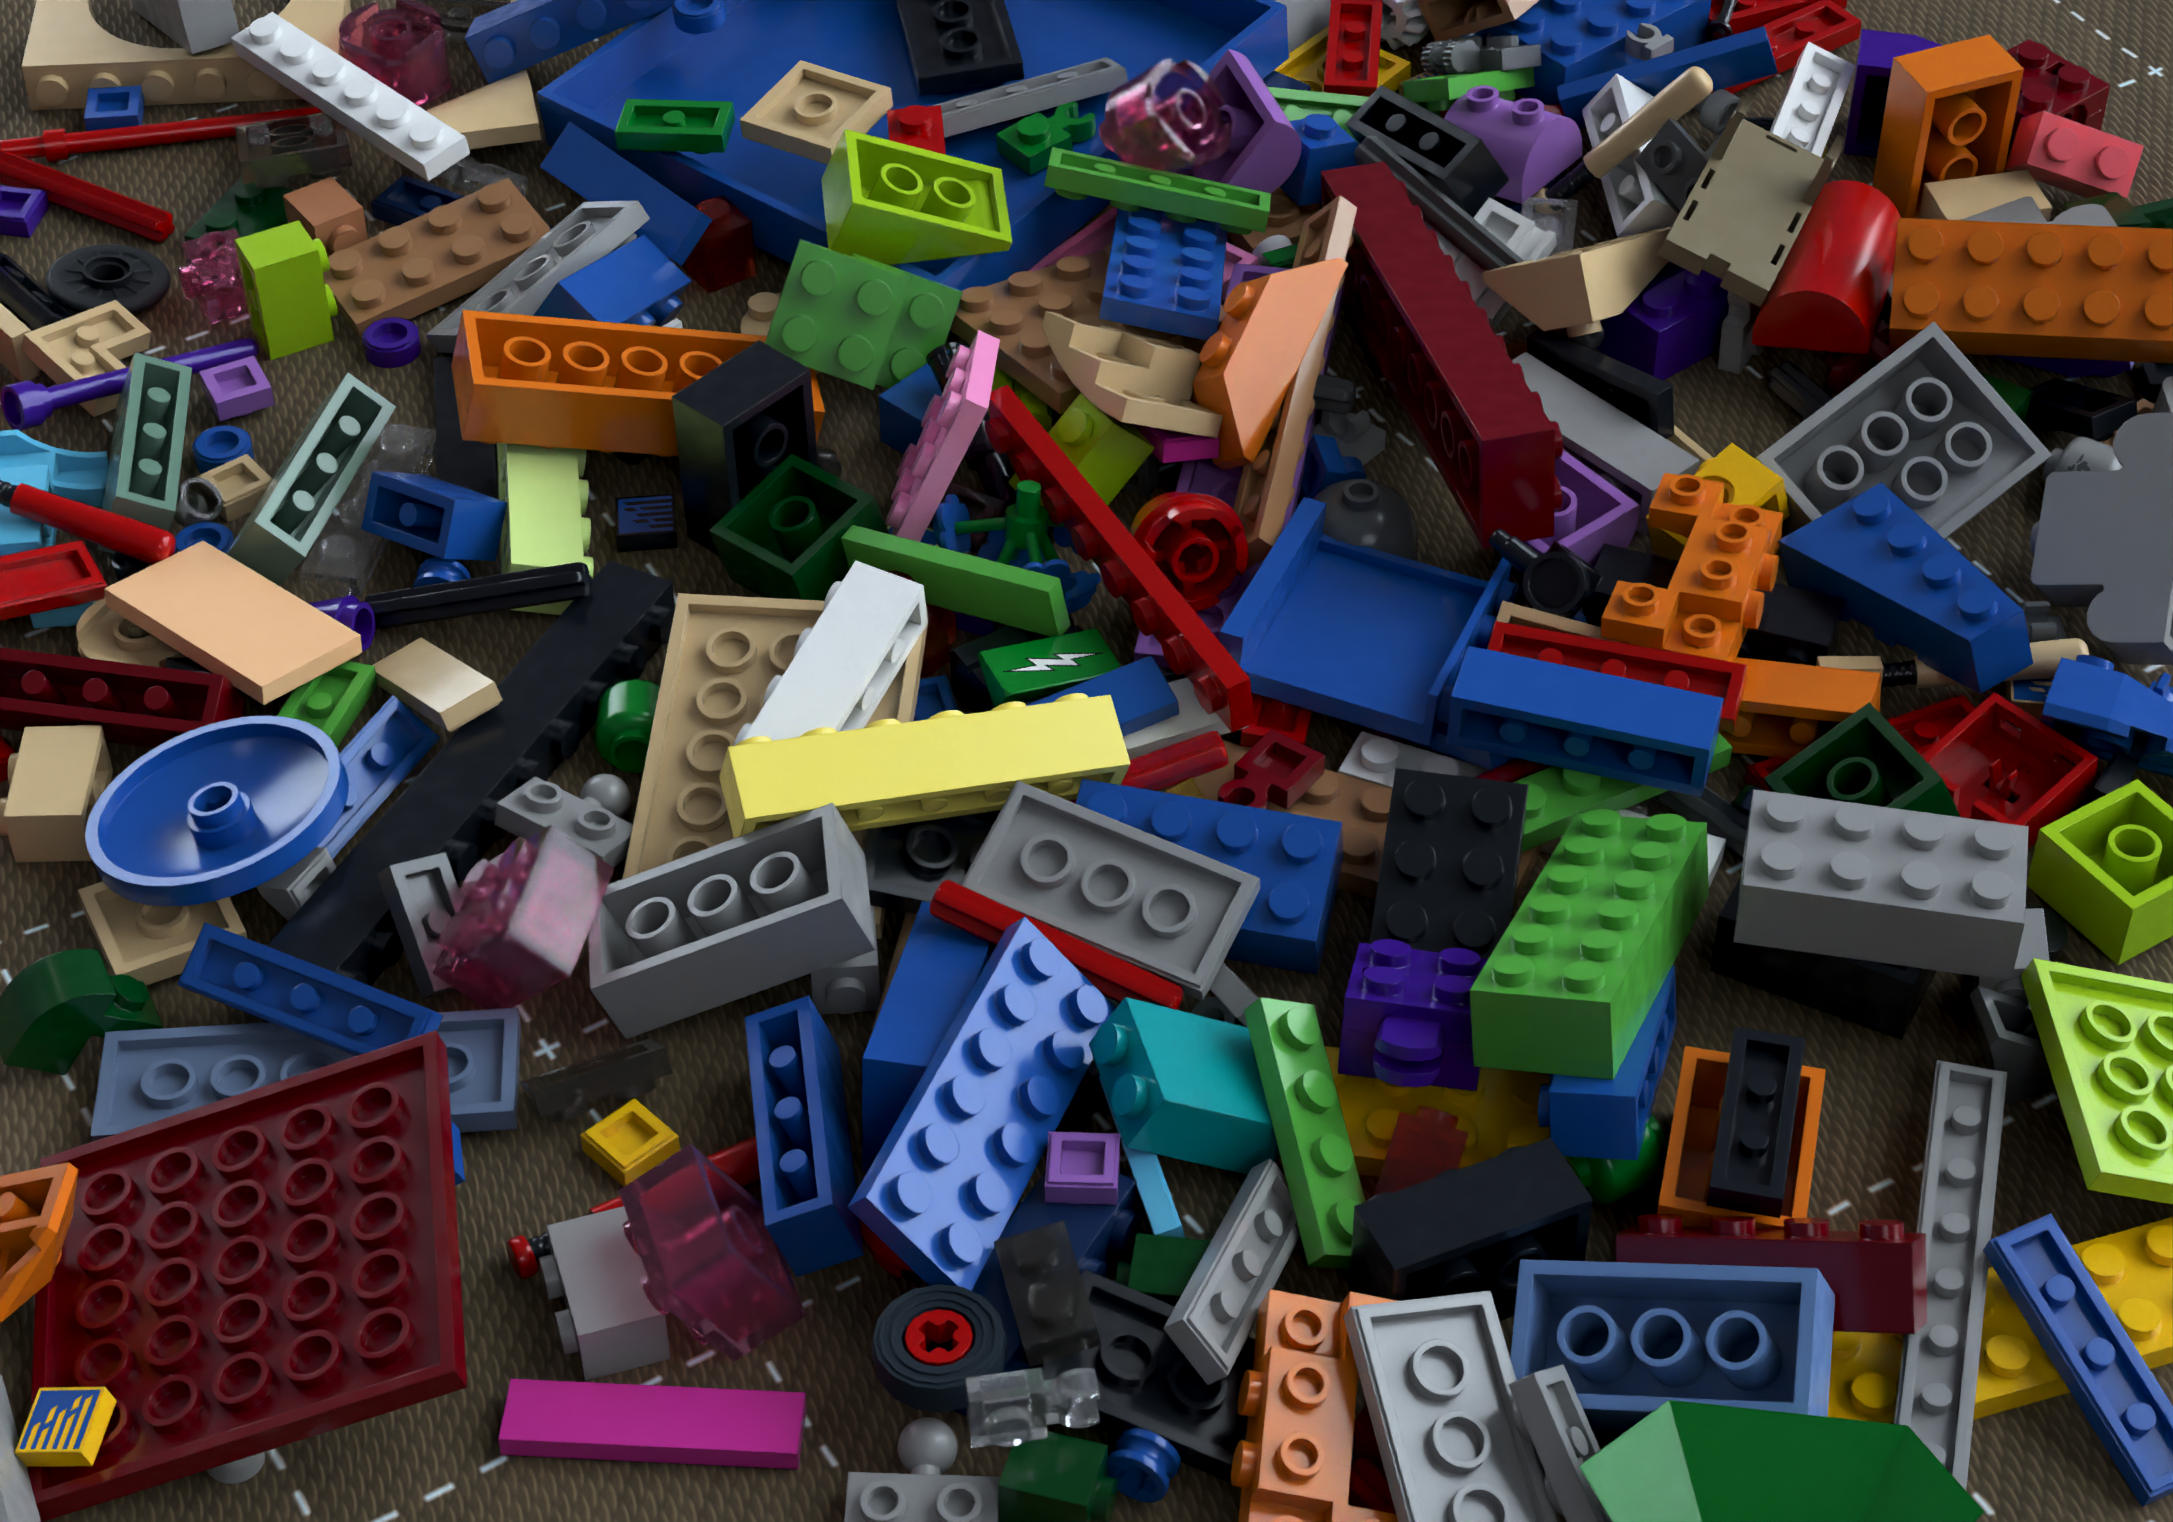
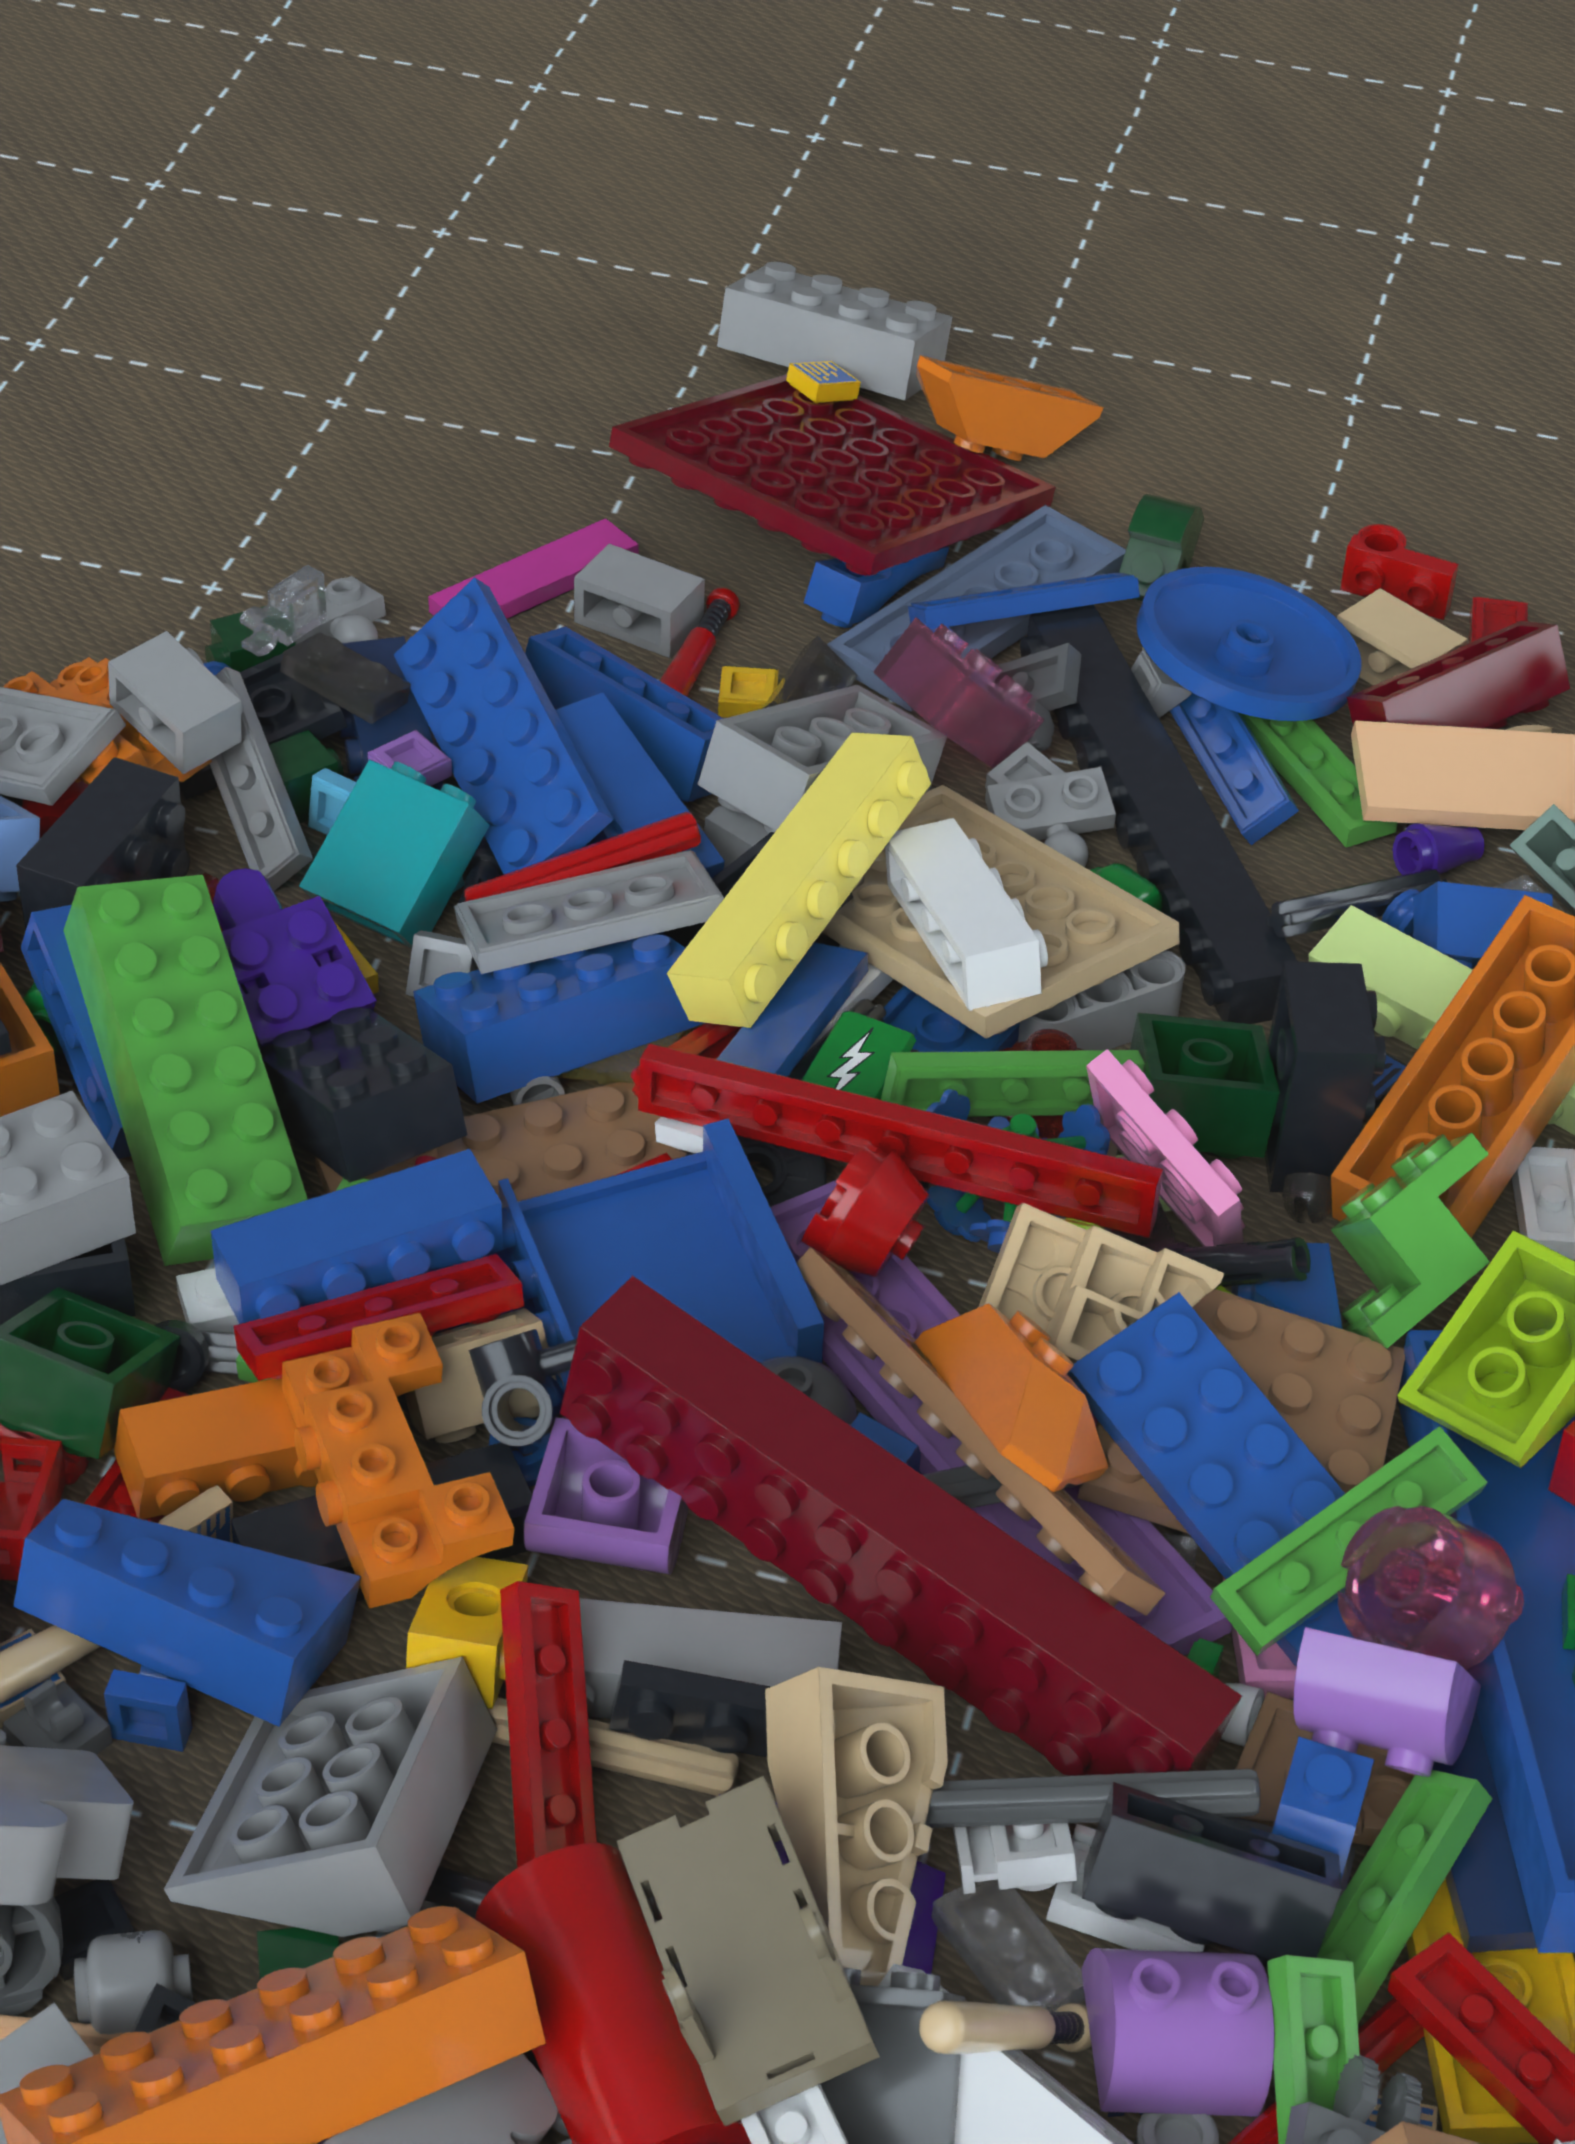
camera: 135 degrees right, 0 degrees up
(436, 684) = (1279, 828): tan tile -> none
(709, 1254) = (587, 591): clear pink brick -> none
(937, 1314) = (358, 611): black bush -> none
(1273, 772) = (589, 1105): dark red plate -> none
(1283, 1284) = (175, 701): none -> light grey brick
(1307, 1127) = (348, 888): bright green plate -> none
(1730, 420) = (547, 1719): none -> red plate

